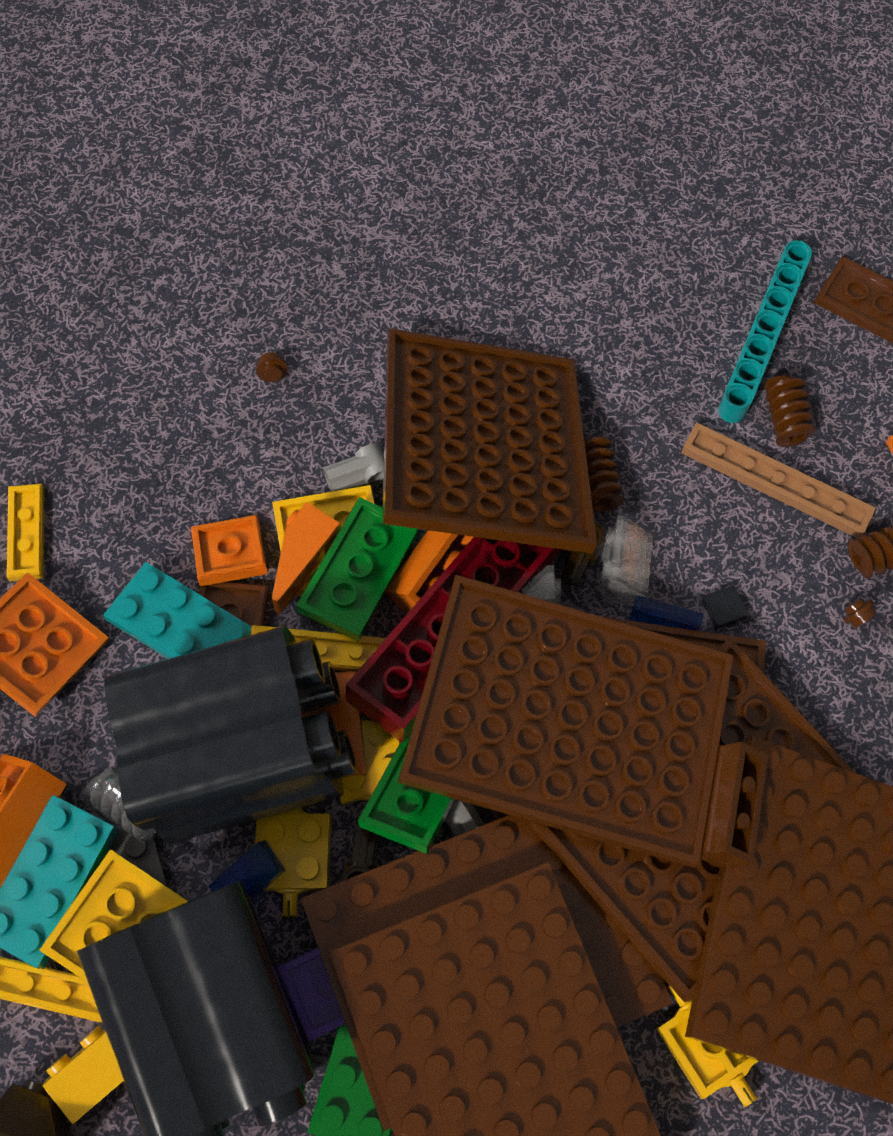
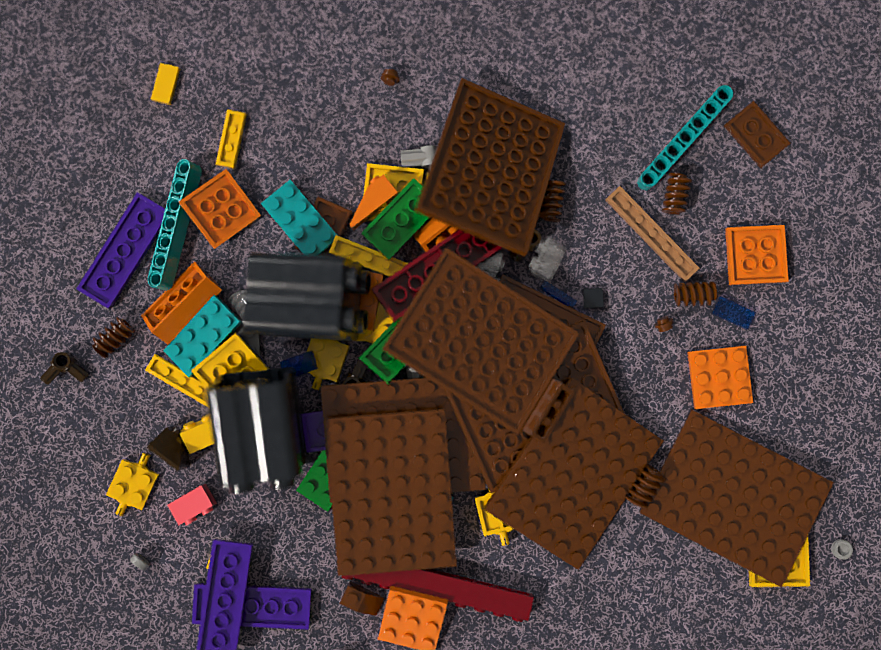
camera: 25 degrees right, 20 degrees up
(228, 550) = (336, 184): orange tile -> none

